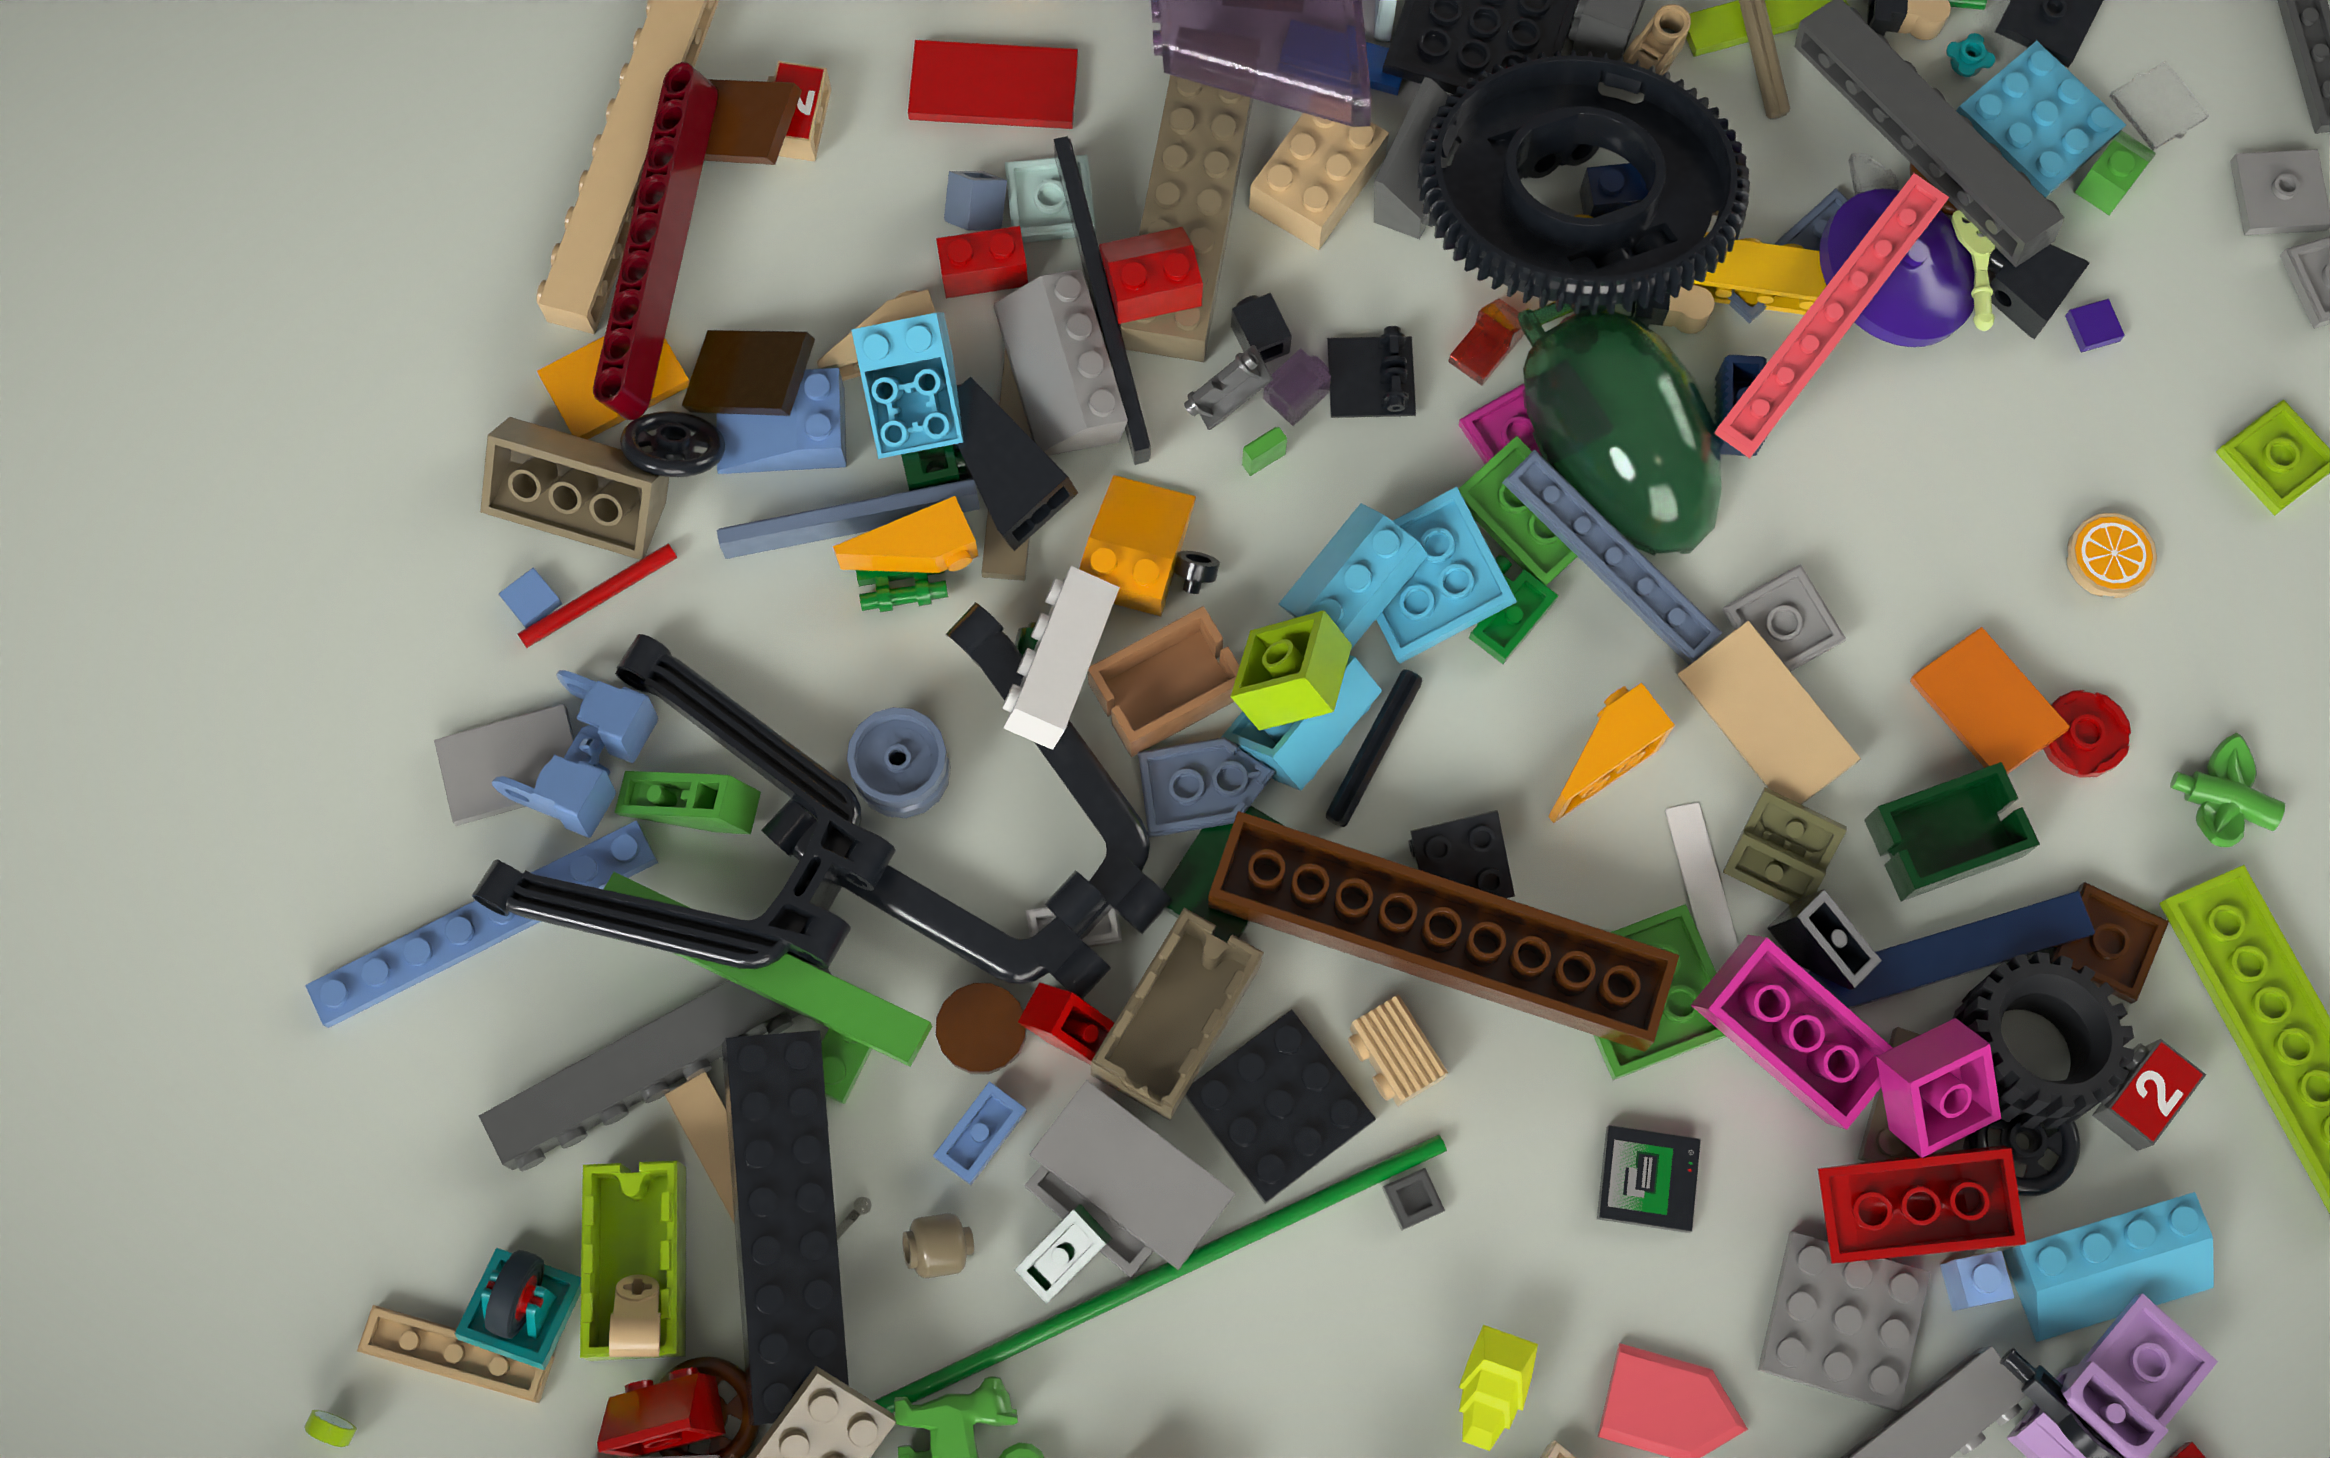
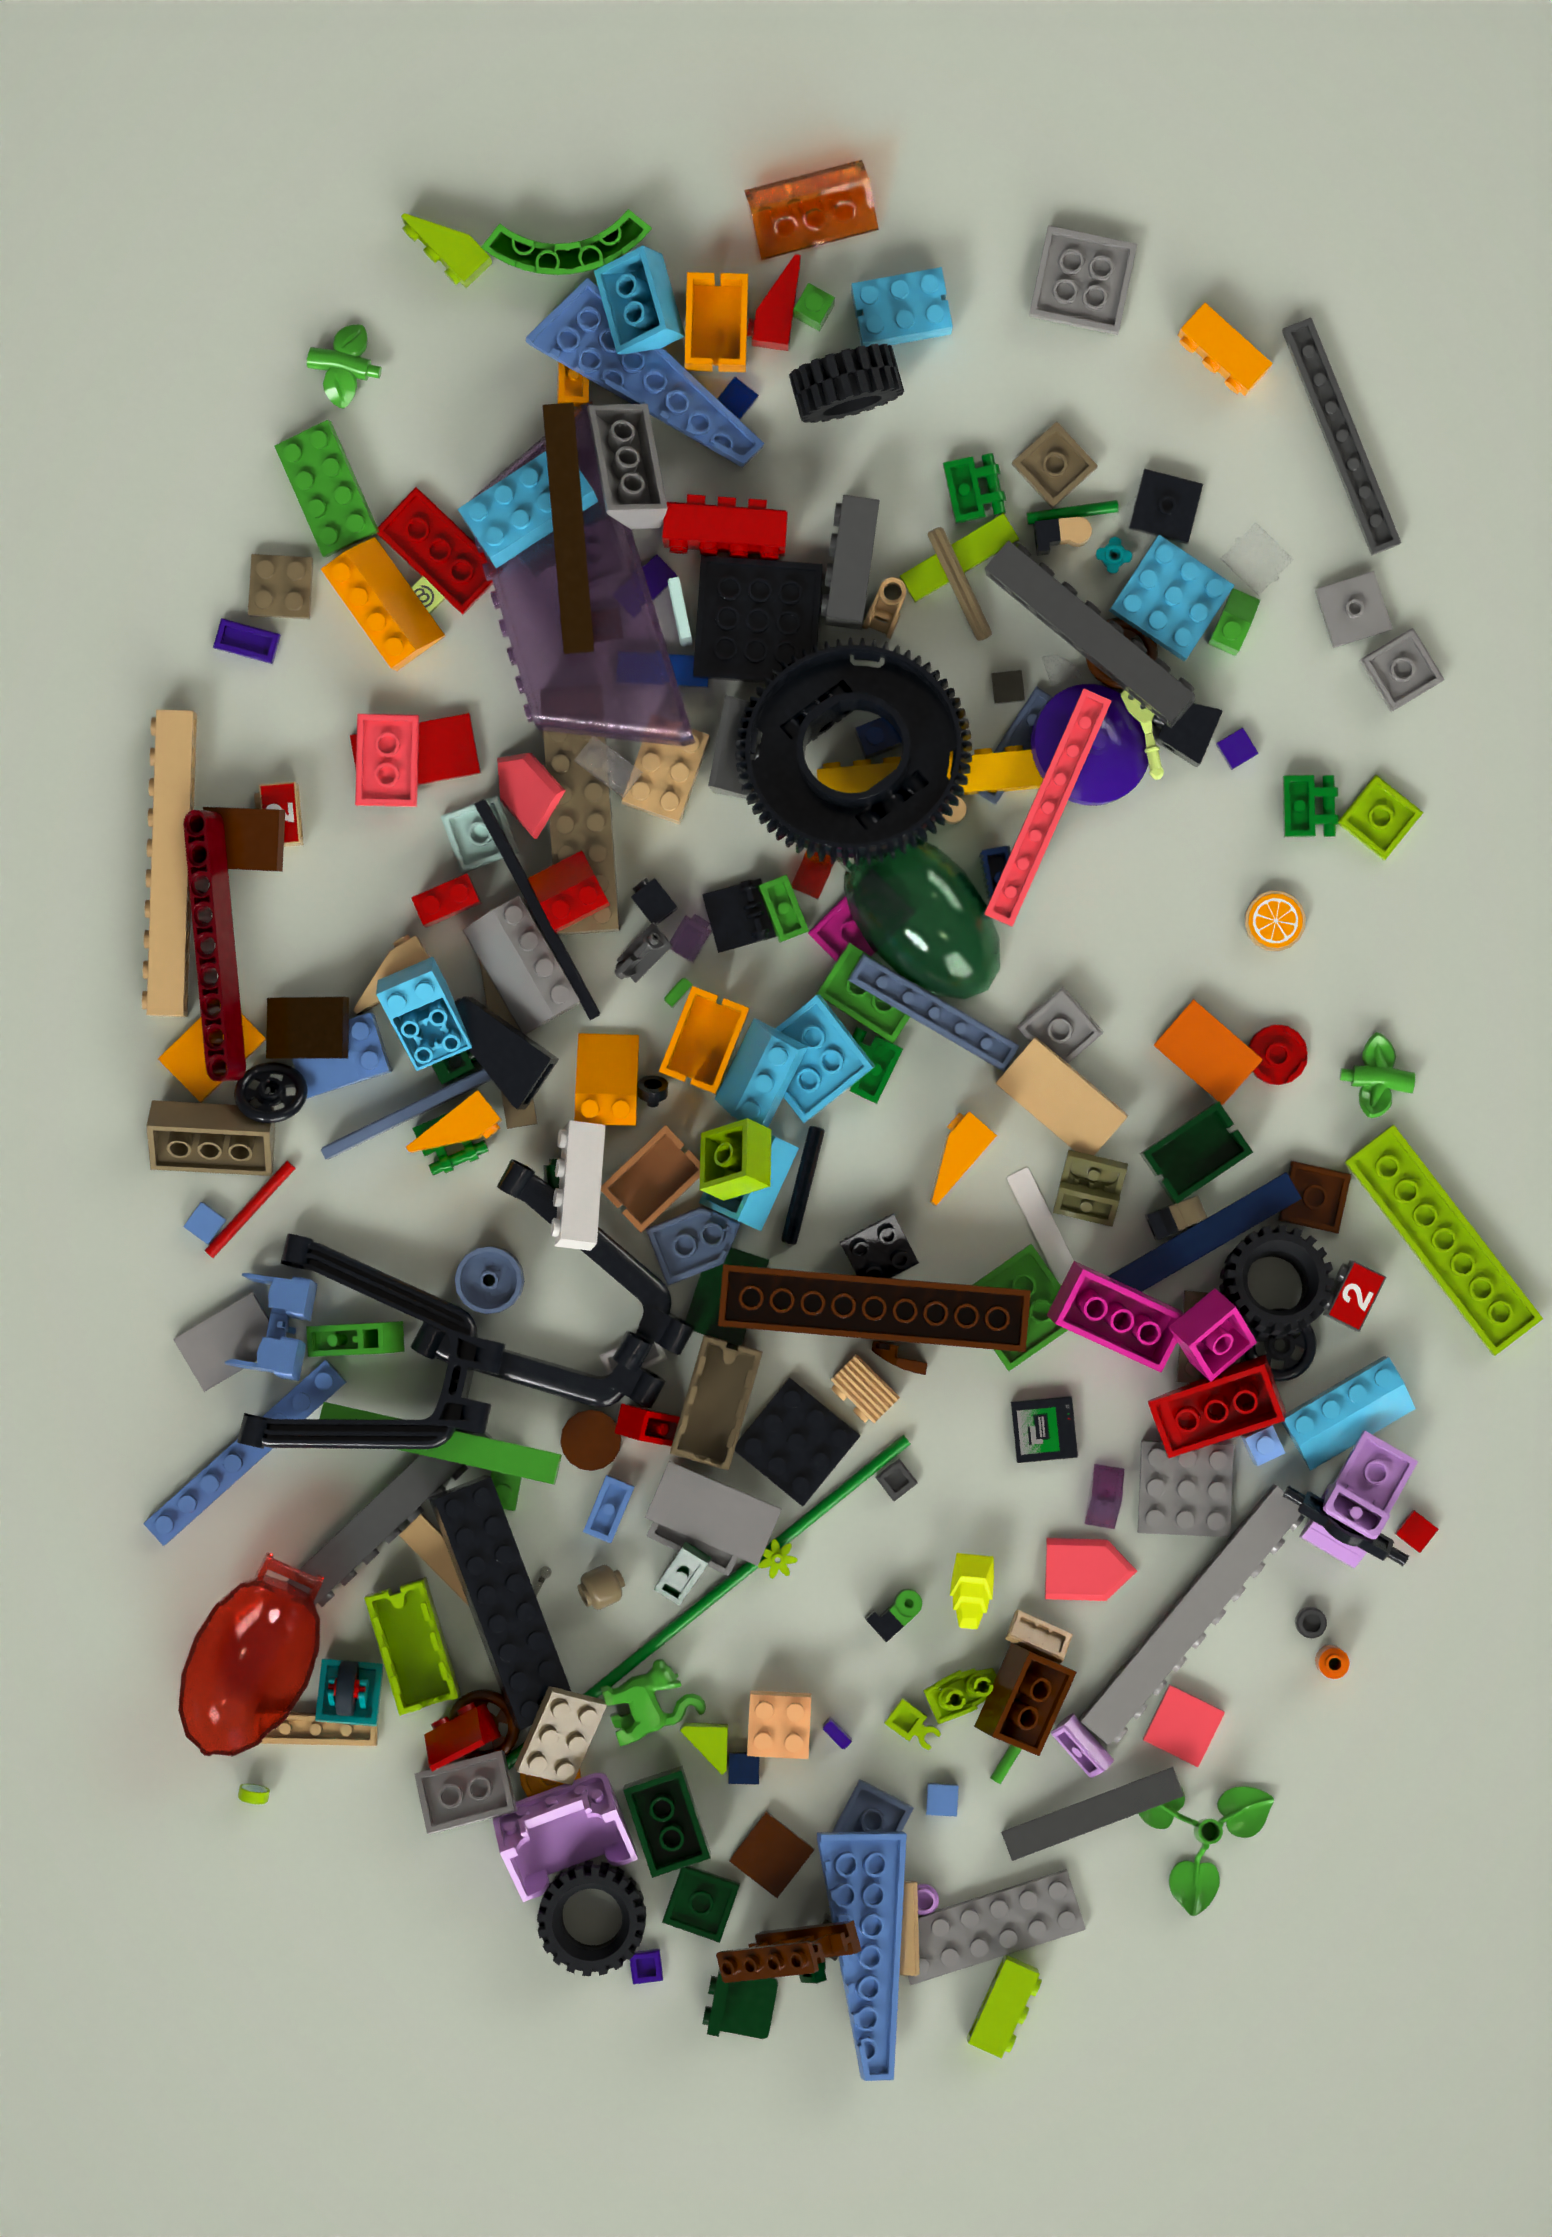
camera: 10 degrees left, 15 degrees up
(379, 1212) = (250, 1660): none -> clear red windscreen
(635, 1318) = (427, 1683): tan piece -> none
(954, 77) = (387, 760): none -> coral tile
(975, 200) = (427, 852): sand blue panel -> none
(1130, 150) = (528, 791): none -> coral tile
(1212, 1280) = (782, 1554): none -> lime plant
(1245, 130) = (608, 766): none -> clear plate
(1284, 516) = (704, 1040): none -> light orange piece
(1386, 1392) = (894, 1618): none -> leg
(1433, 378) = (783, 908): none -> bright green plate
(1467, 1031) = (889, 1353): none -> reddish brown slope
(1720, 1303) = (1105, 1496): none -> clear purple slope
(1796, 181) = (1007, 687): none -> clear smoke tile
(1824, 940) = (1126, 1248): black slope -> none
(1900, 919) = (1175, 1217): none -> leg
(2171, 415) = (1299, 806): none -> green plate

